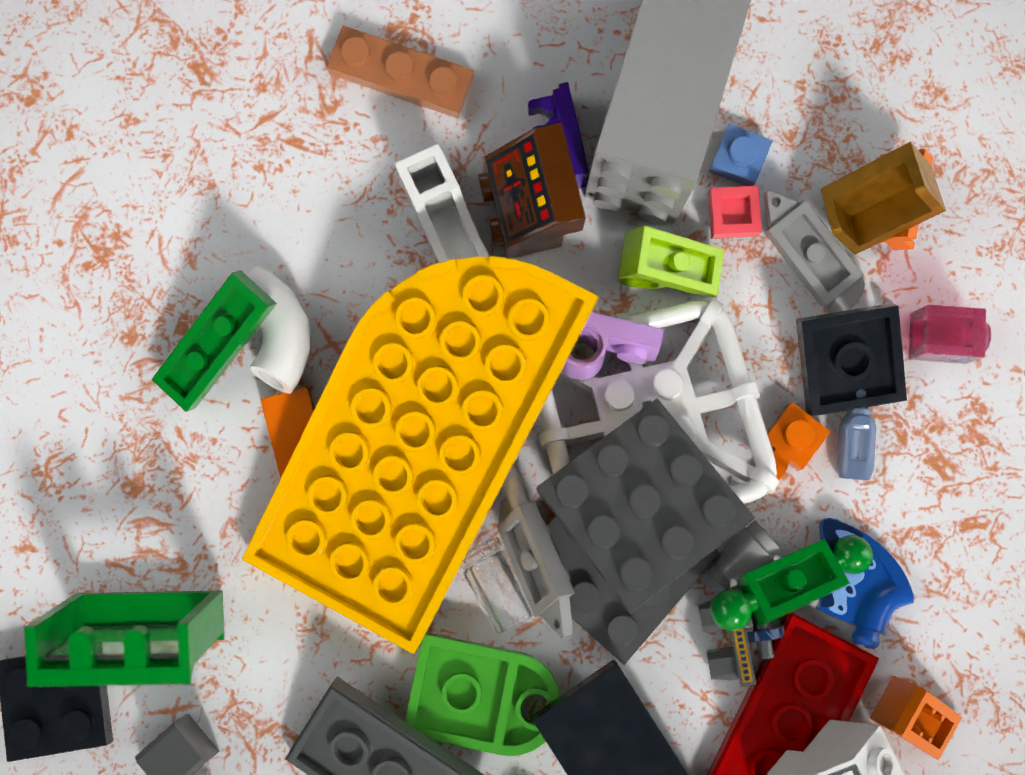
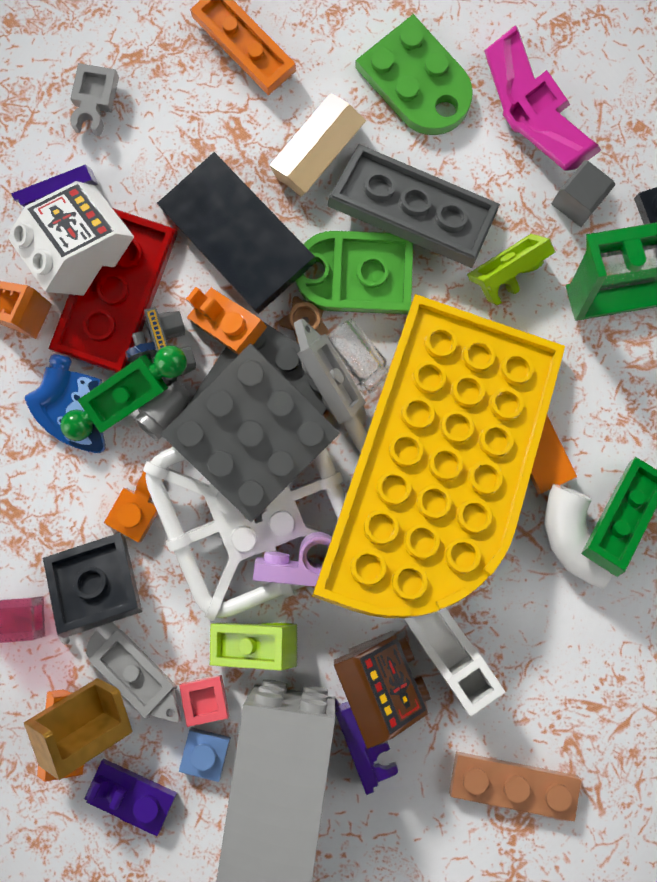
camera: 175 degrees right, 0 degrees up
(281, 679) = (521, 257): none -> lime plate
(557, 660) = (304, 309): none -> medium nougat plate
(655, 657) = (224, 319): none -> orange plate
(829, 123) = (130, 797): none -> dark purple plate
(856, 443) = (81, 516): sand blue piece -> none

